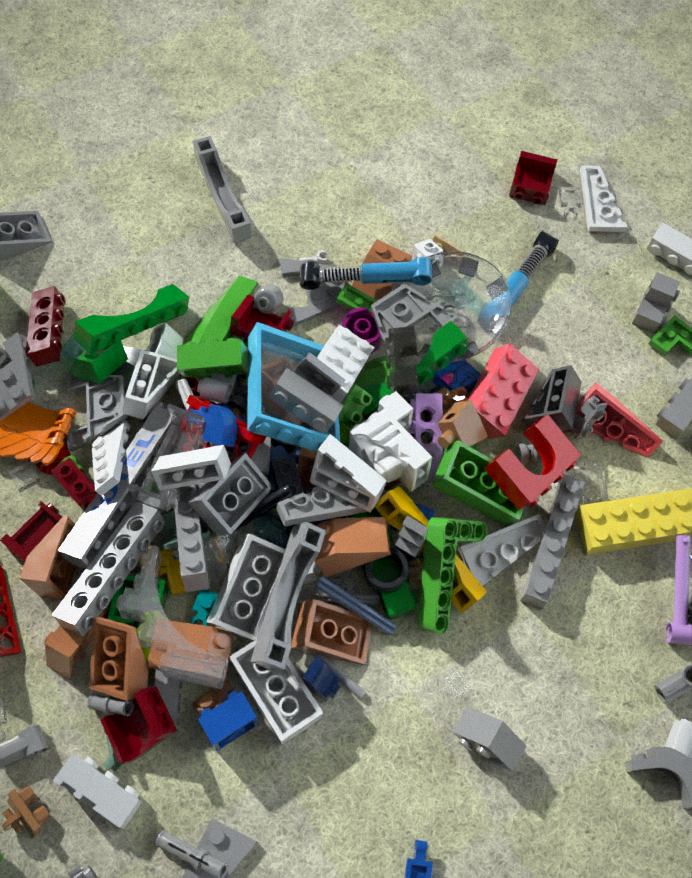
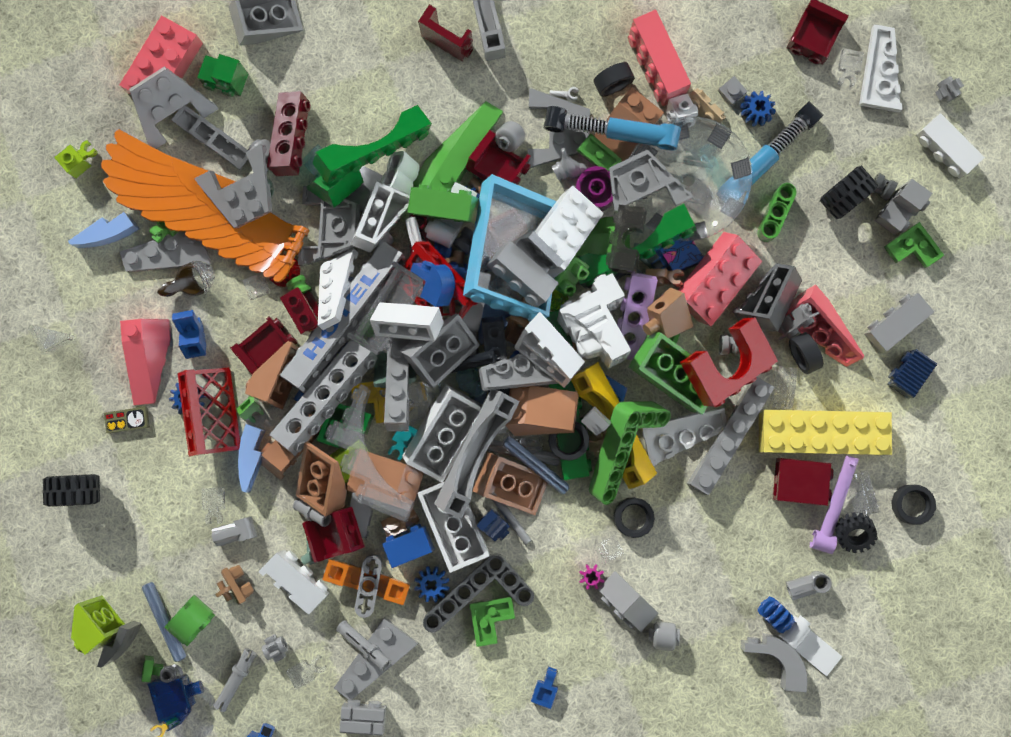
camera: 20 degrees right, 20 degrees up
(26, 602) = (248, 407): none -> bright green tile
(32, 655) = (249, 456): none -> light blue slope
(181, 760) = (371, 602): none -> light grey beam
(184, 776) = (349, 575): none -> orange slope
(191, 224) = (433, 32): none -> dark red panel
(262, 773) = (432, 591): none -> blue gear
(313, 759) = (475, 588): none -> dark grey beam
(329, 318) = (568, 167): none -> light grey animal
(330, 790) = (486, 614): none -> bright green plate
(358, 236) = (614, 79): none -> black tyre
(395, 212) = (658, 57): none -> coral brick
(436, 722) = (594, 582): none -> dark pink gear
(470, 235) = (732, 90): none -> light grey plate
(490, 639) = (649, 515): none -> black tyre
(497, 244) = (761, 116): none -> blue gear
(540, 772) = (664, 636): none -> light grey head
(541, 320) = (781, 204): none -> bright green beam
(602, 296) = (849, 192): none -> black tyre
(606, 445) = (806, 353): none -> black tyre
(631, 291) = (885, 186): none -> dark grey wheel
(639, 573) = (802, 481): none -> dark red panel
(655, 721) = (776, 614): none -> blue gear
(663, 205) = (949, 89): none -> light grey gear

